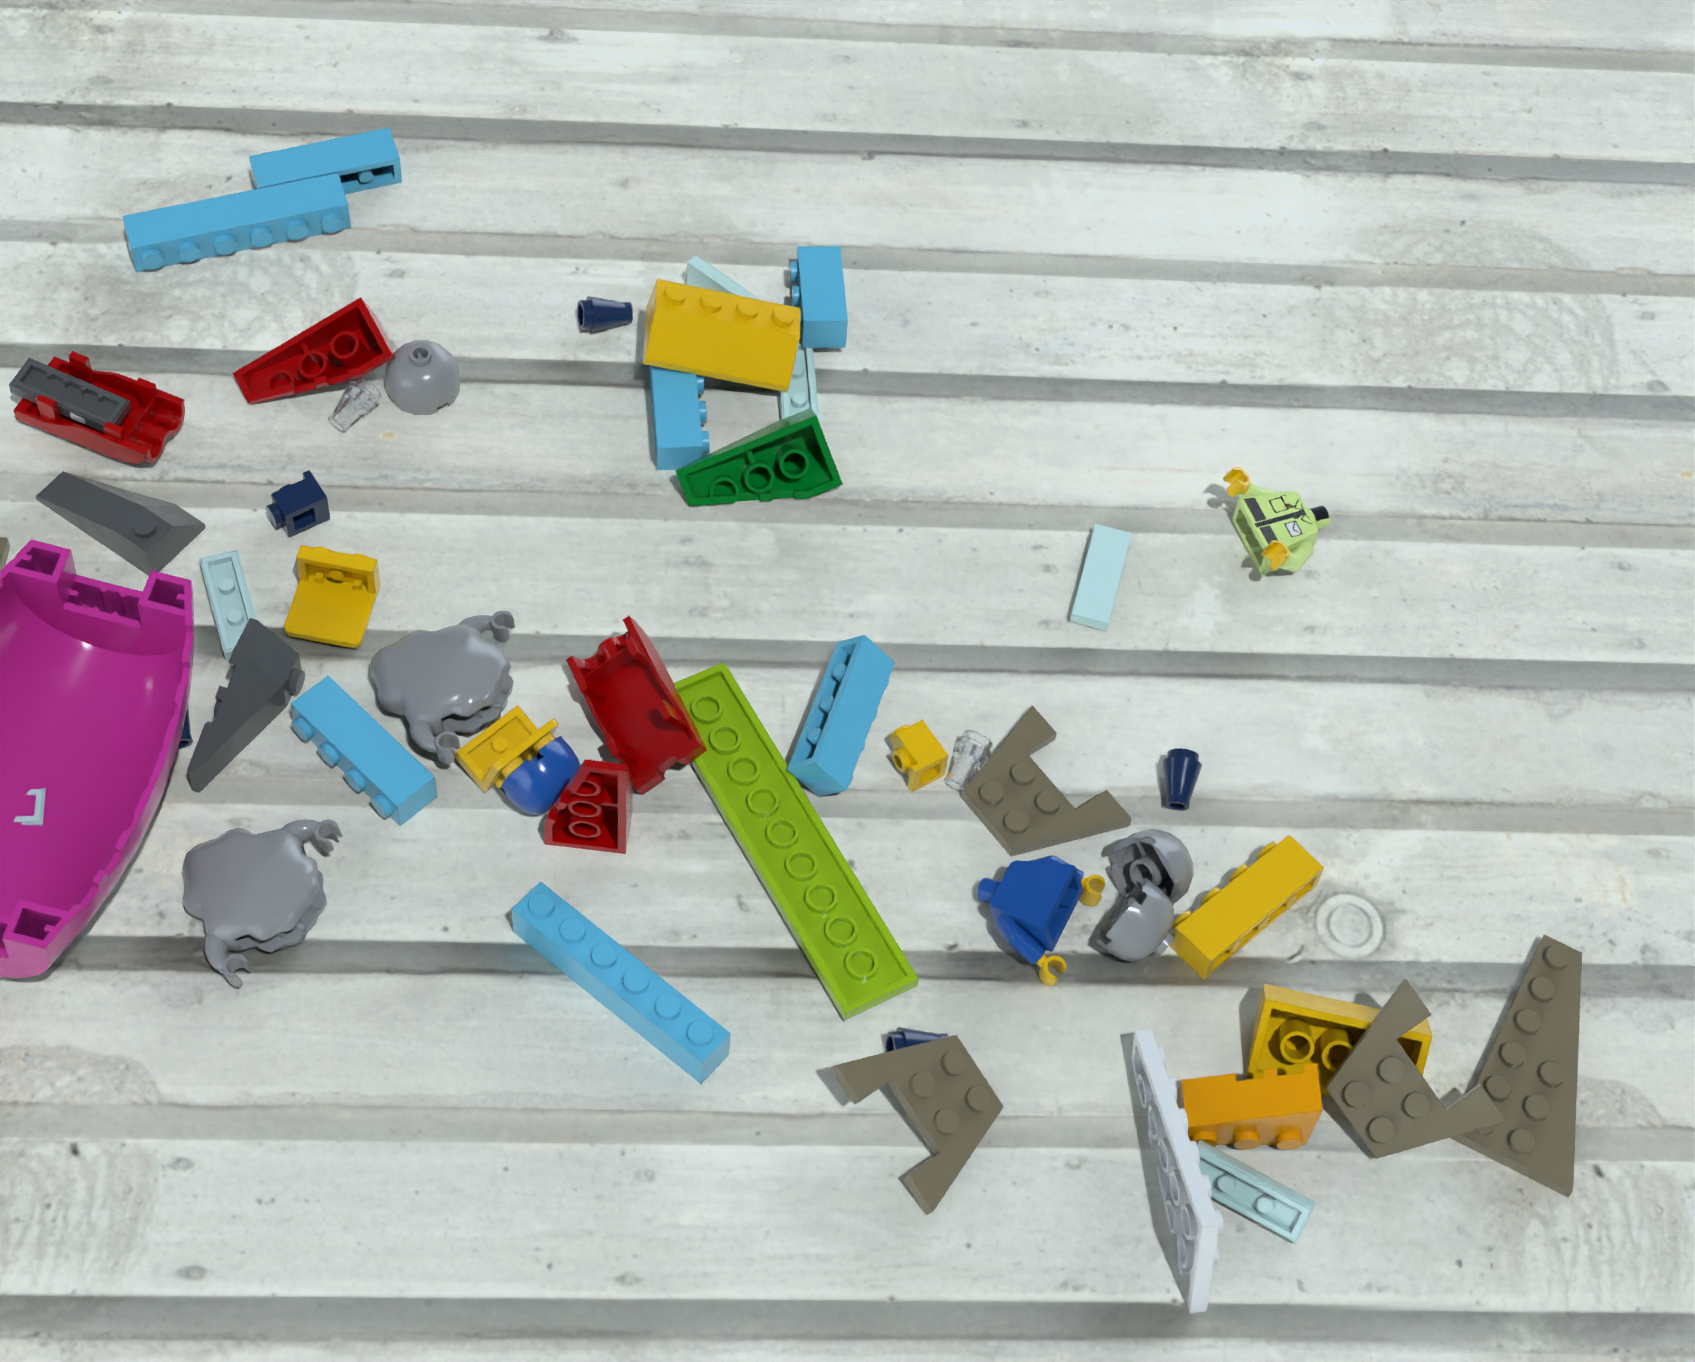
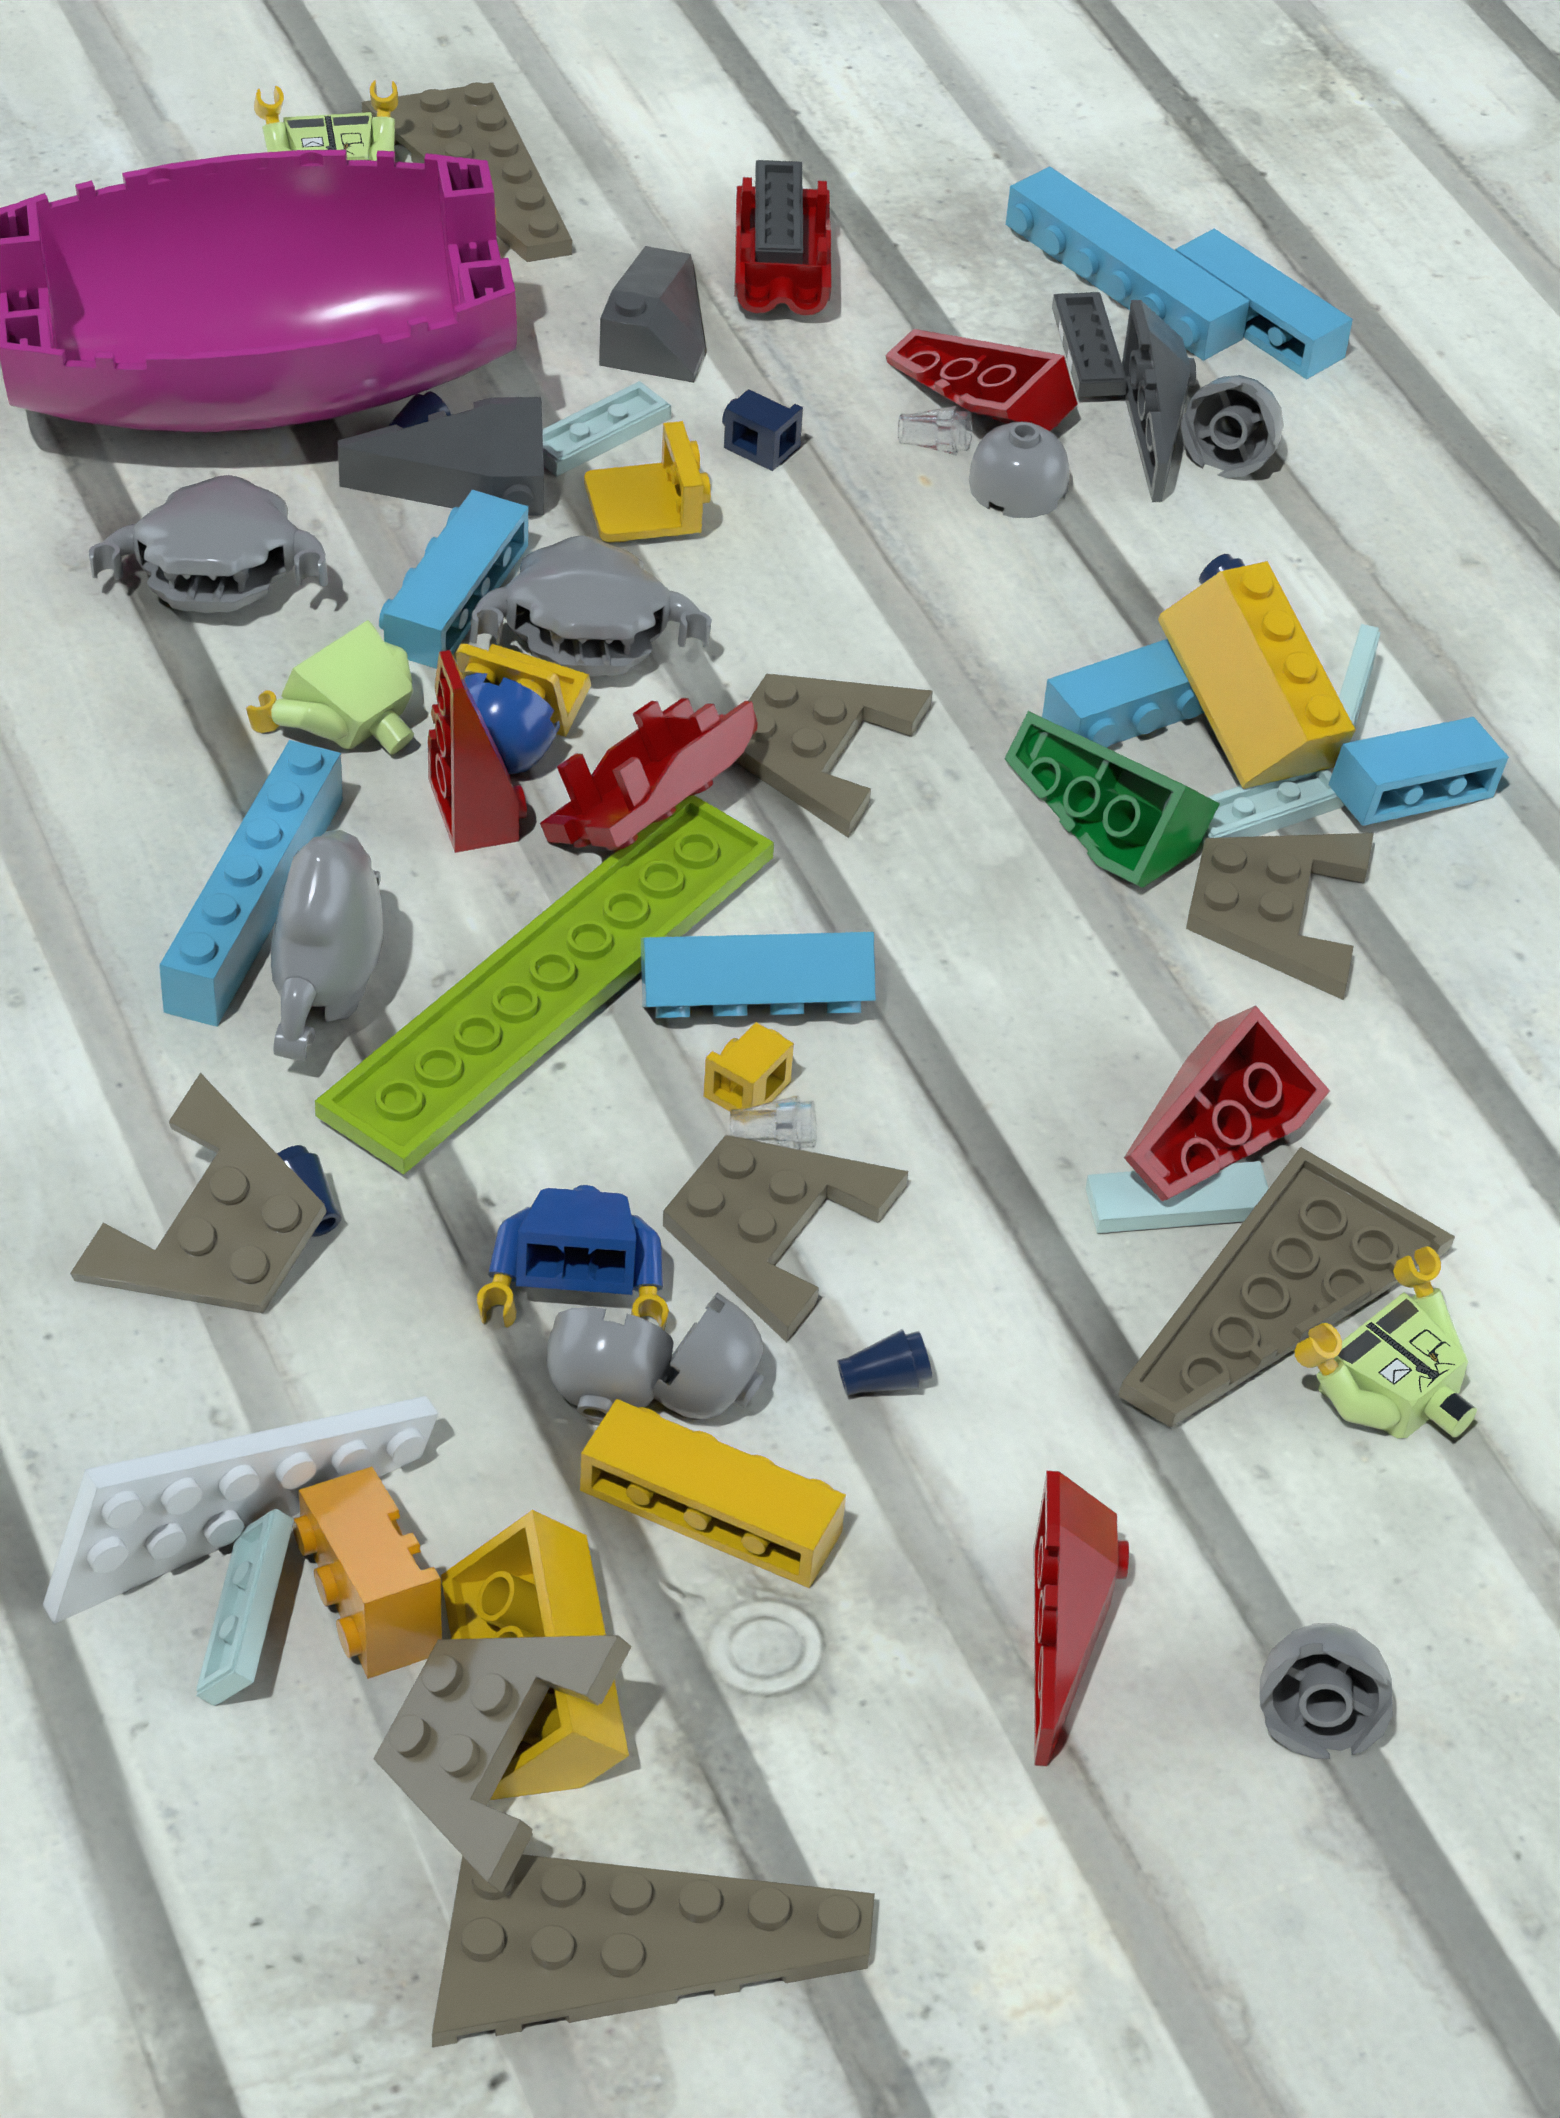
camera: 70 degrees right, 10 degrees down
(308, 280) = (1089, 344): none -> dark grey plate
(395, 269) = (1155, 390): none -> dark grey wedge
(454, 239) = (1232, 425): none -> light grey cylinder
(458, 857) = (345, 693): none -> yellowish green torso
(603, 596) = (807, 728): none -> dark tan wing
(727, 948) = (324, 936): none -> light grey piece
(877, 431) = (1255, 895): none -> dark tan wing
(1045, 510) = (1225, 1104): none -> red wedge
(1190, 552) = (1297, 1261): none -> dark tan wing
(1386, 758) = (1073, 1588): none -> red wedge
(1484, 660) = (1326, 1691): none -> light grey cylinder

